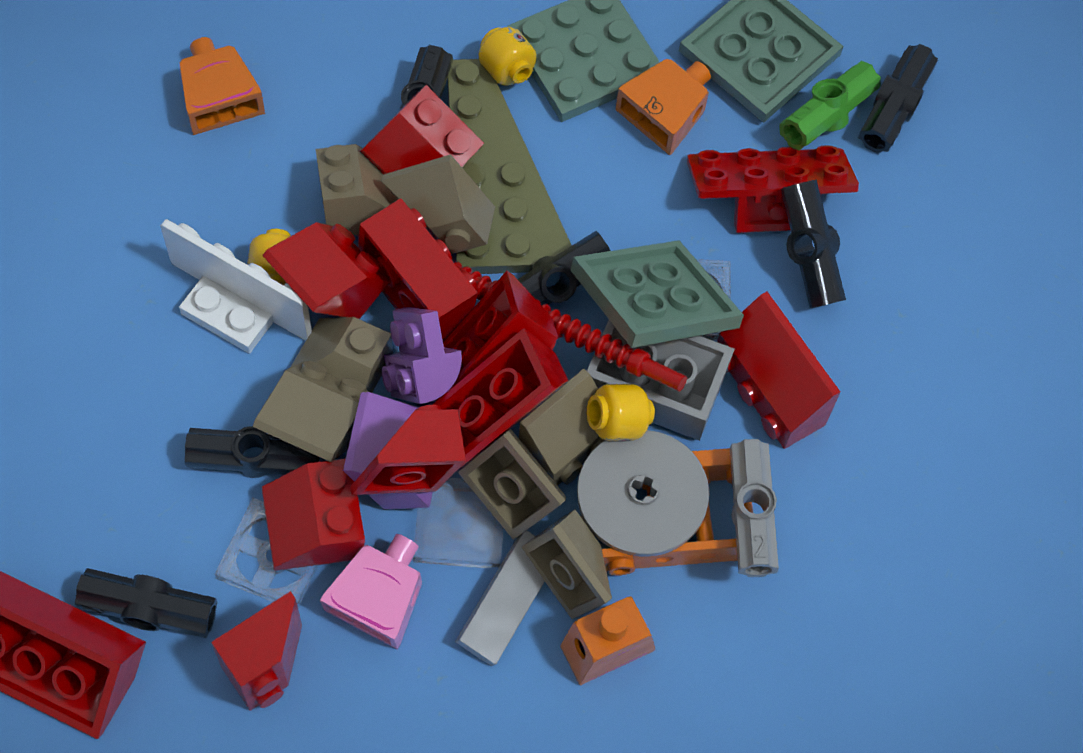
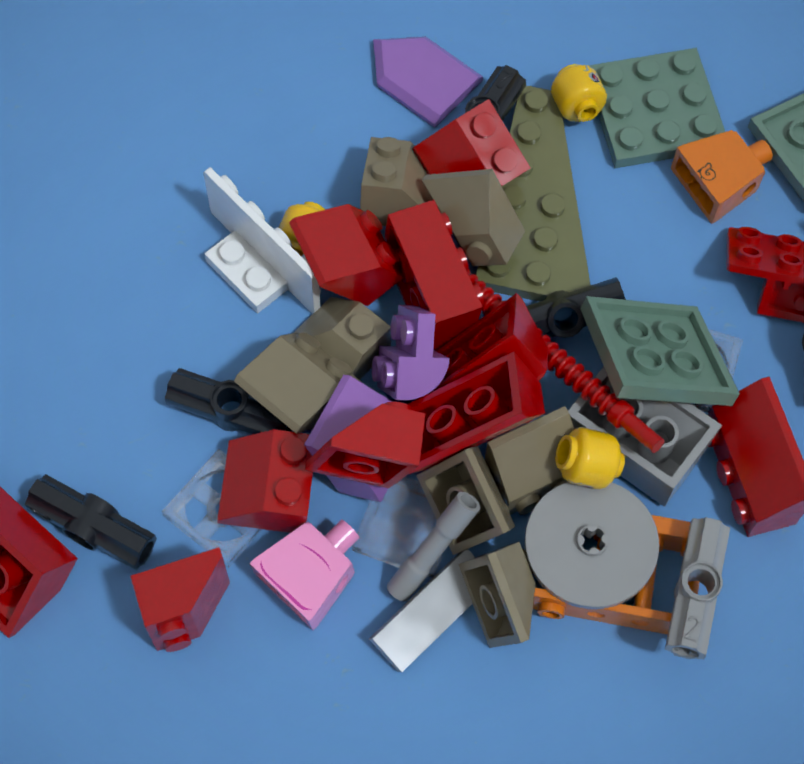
camera: 20 degrees right, 0 degrees up
(218, 87) = (299, 61): orange torso -> none
(345, 73) = (423, 76): none -> medium lavender tile
(505, 513) = (447, 528): none -> light grey piece
(609, 640) = (517, 679): orange torso -> none

